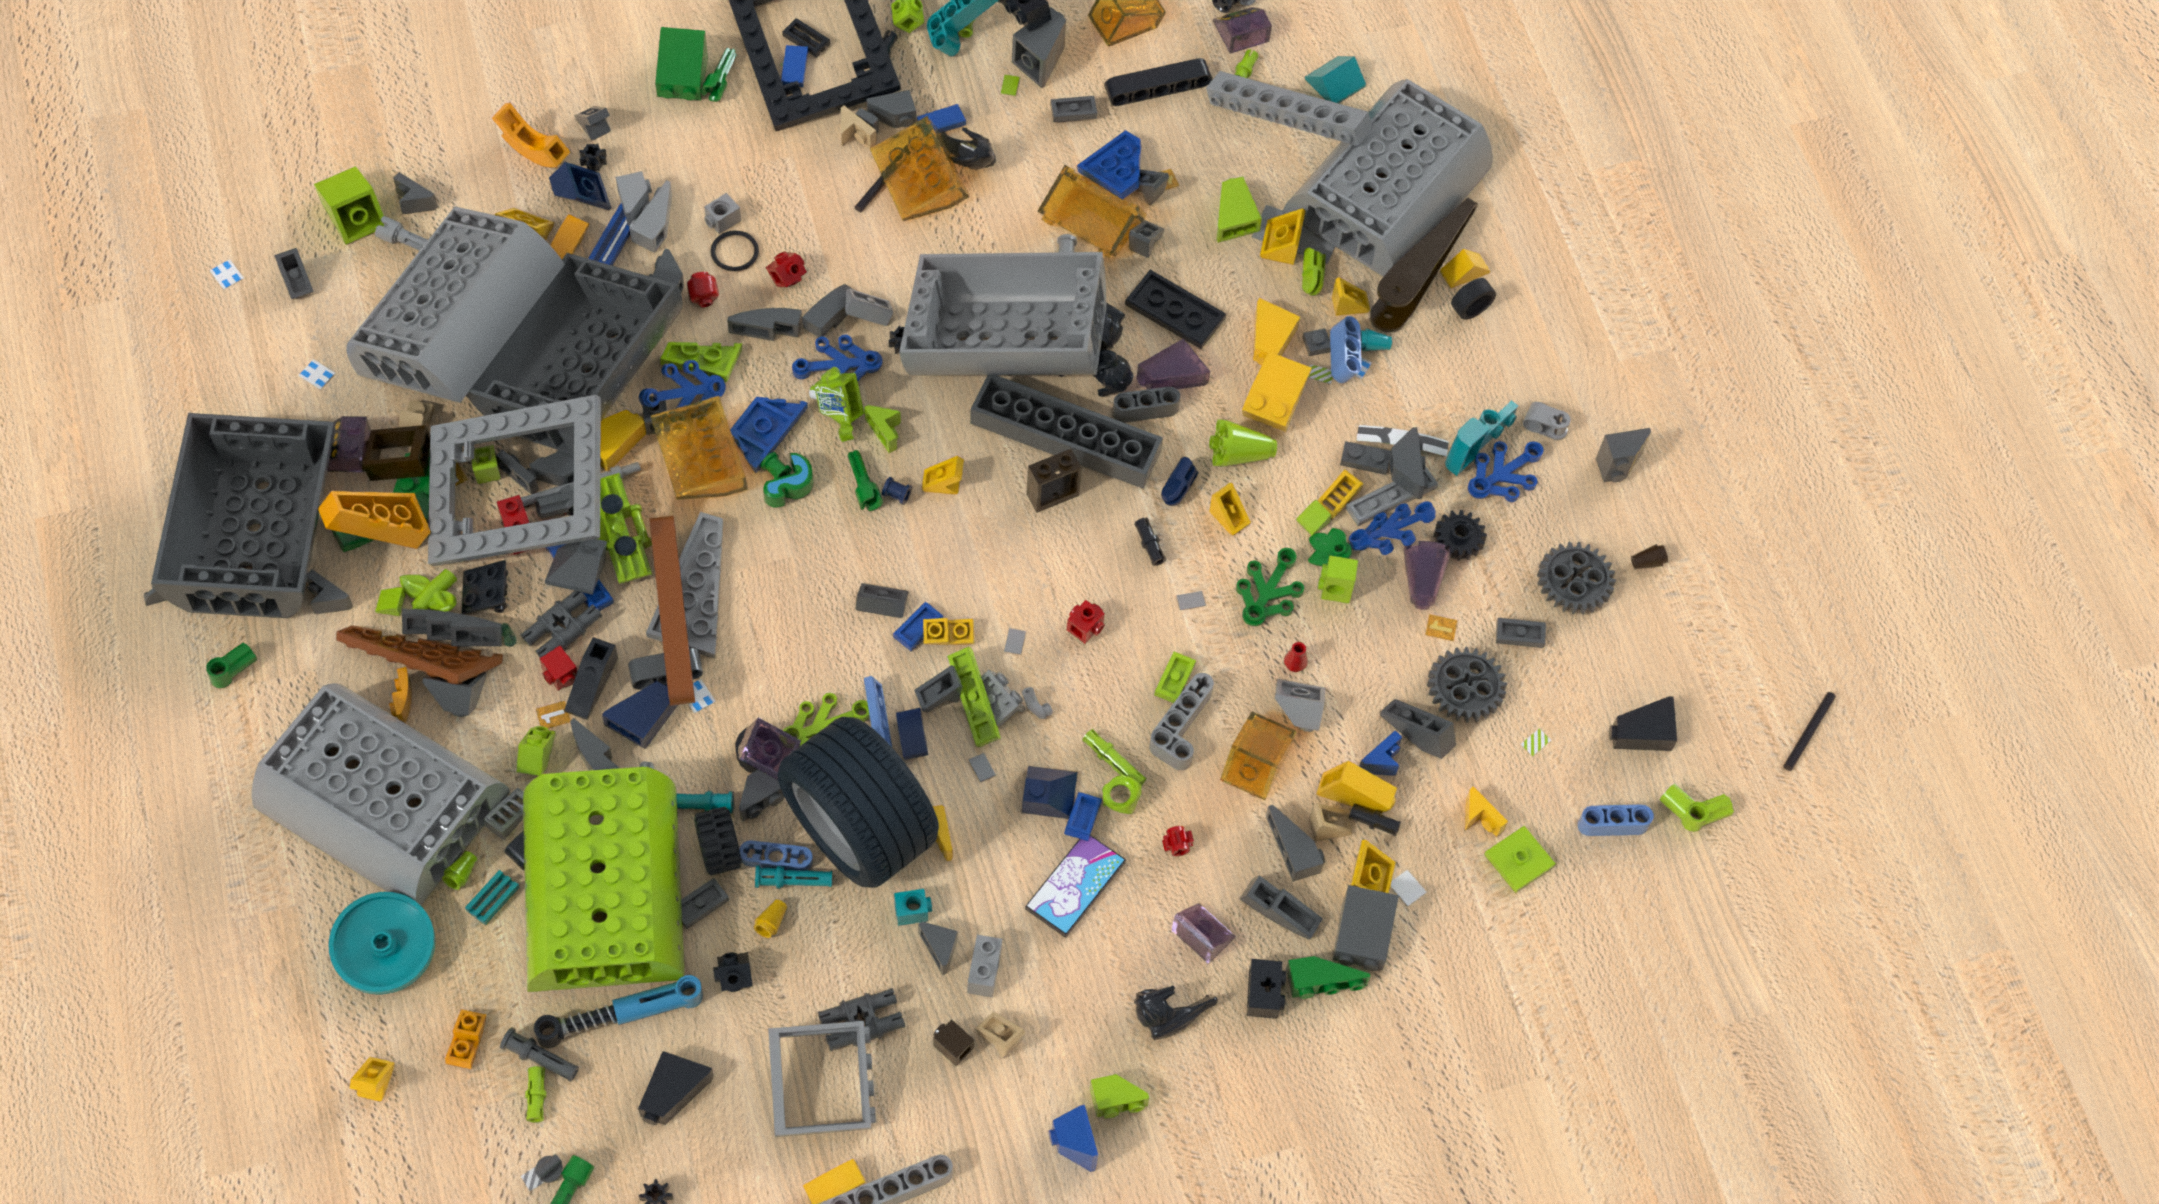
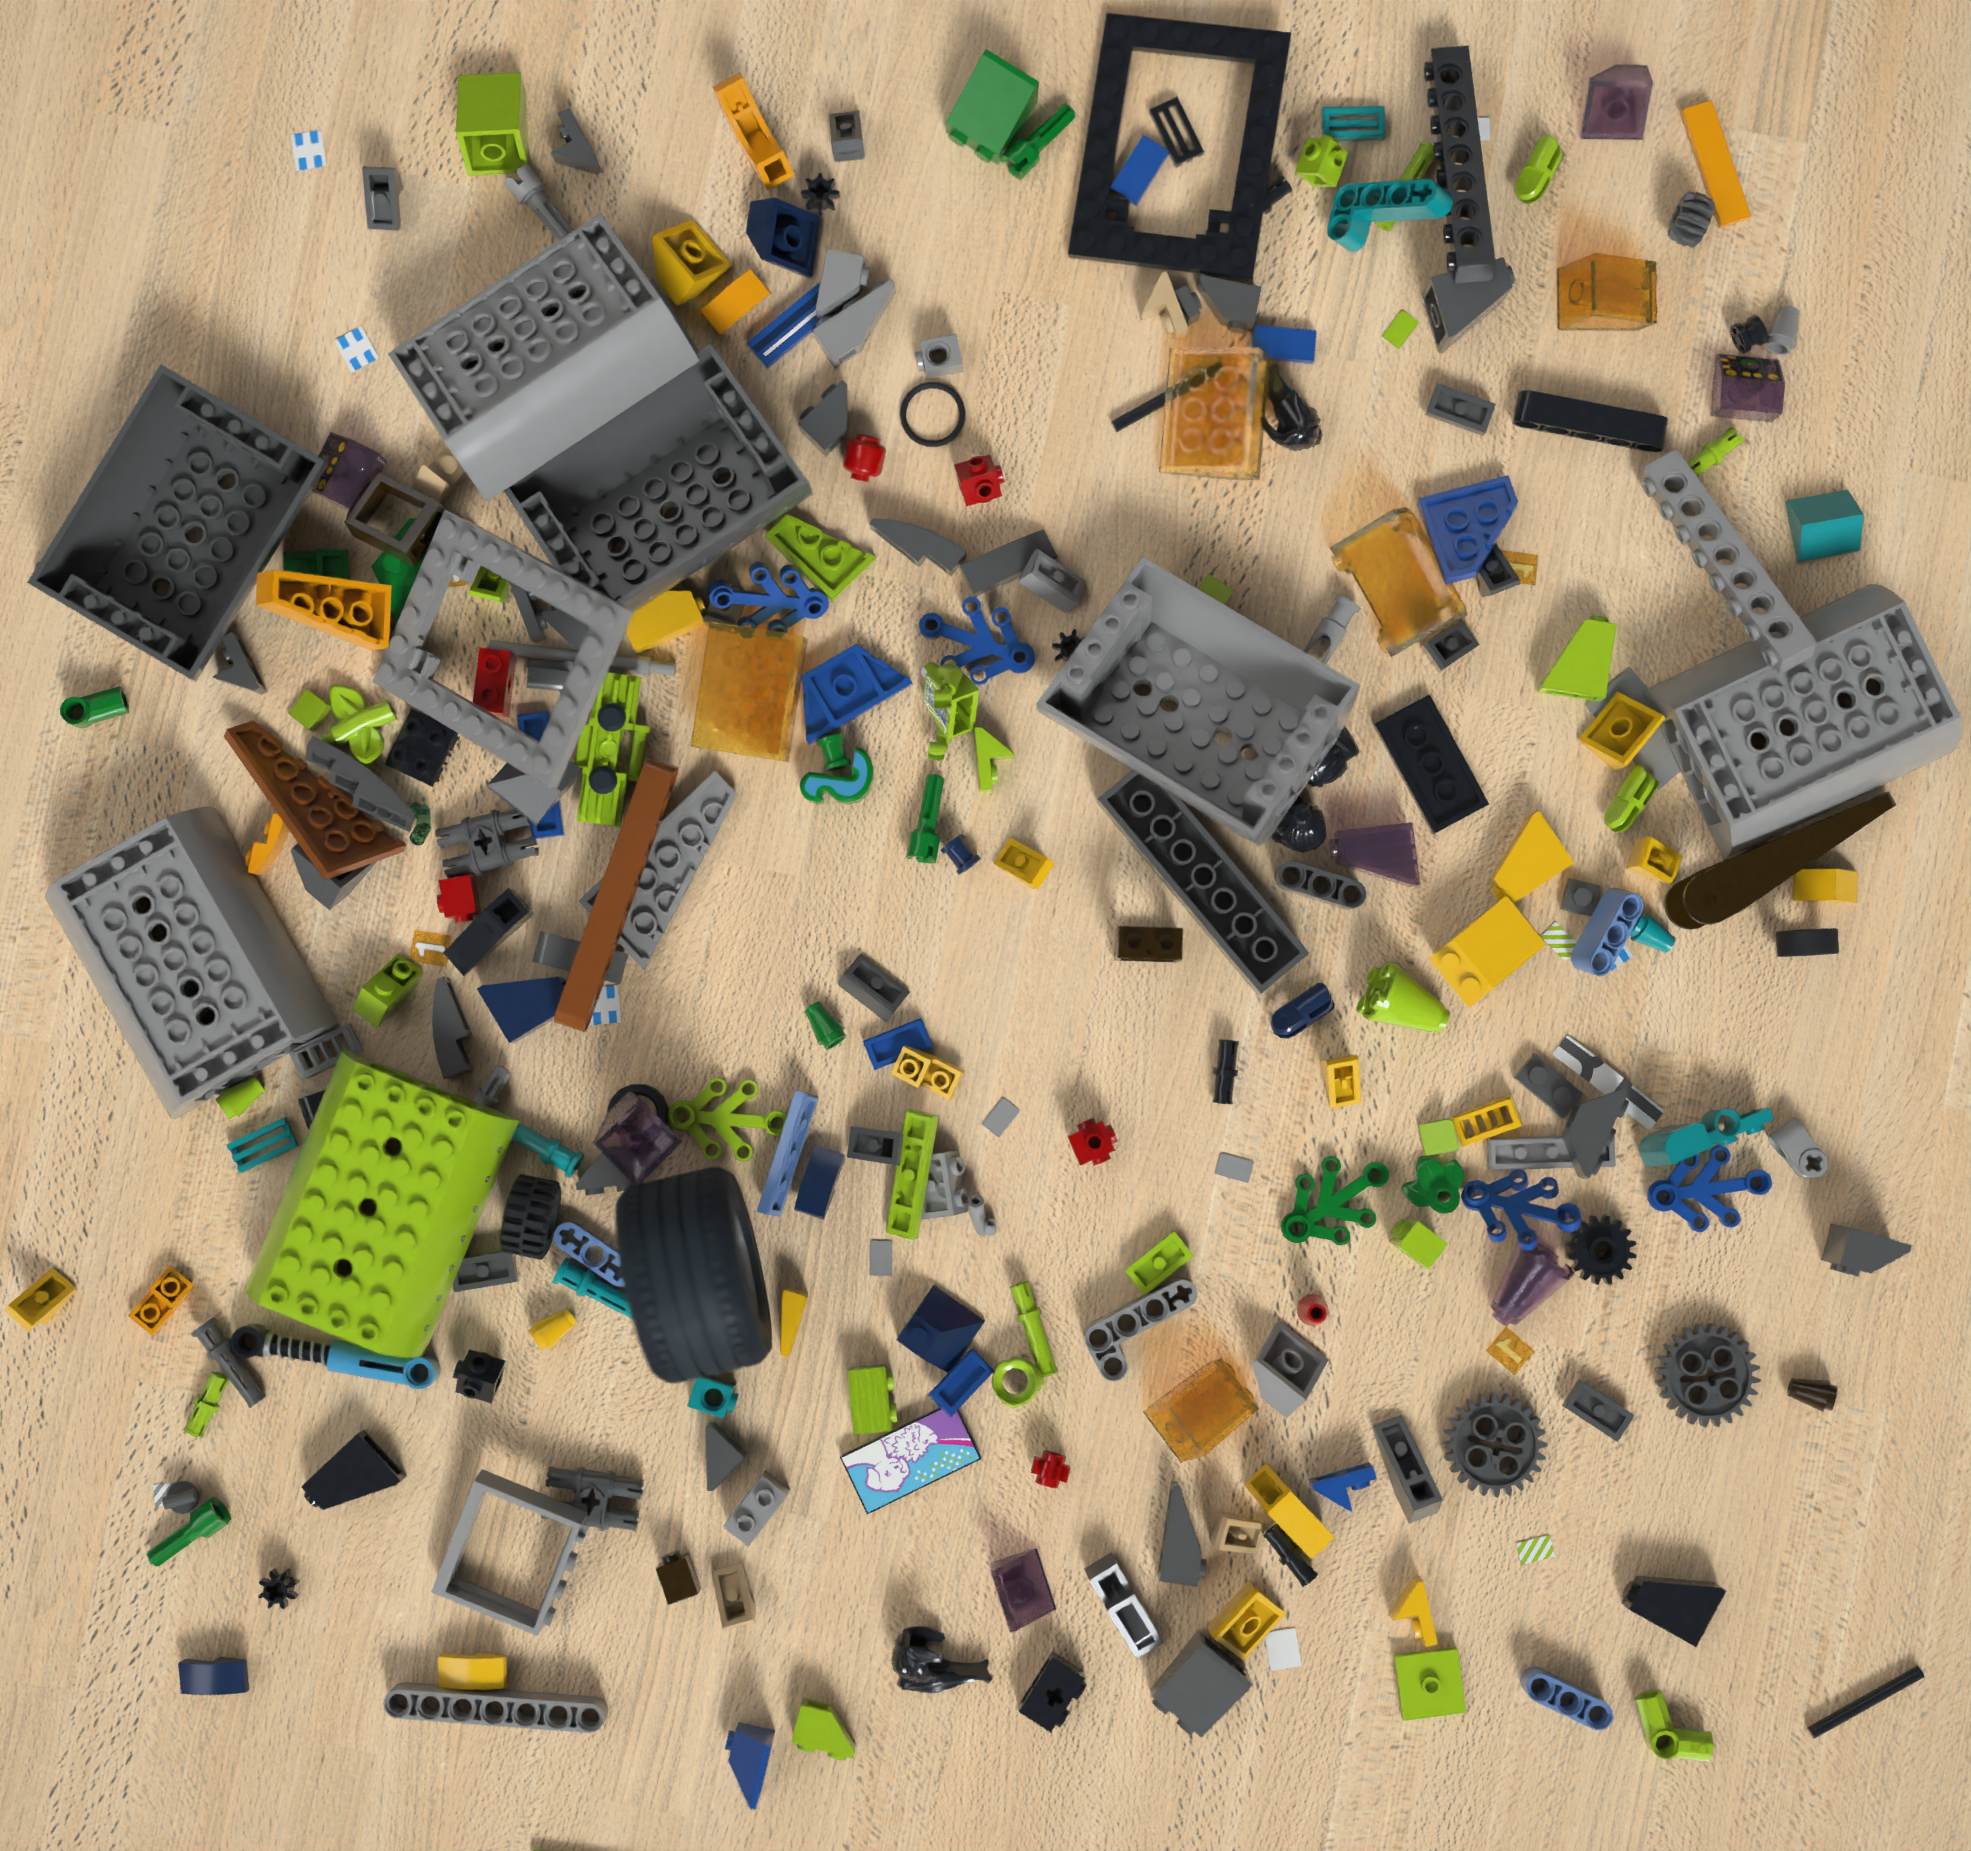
camera: 30 degrees right, 25 degrees up
(382, 943) = (115, 1148): teal dish -> none
(864, 636) = (825, 1026): none -> green cone
(1026, 856) = (870, 1399): none -> lime brick
(1316, 975) = (1116, 1706): green slope -> none

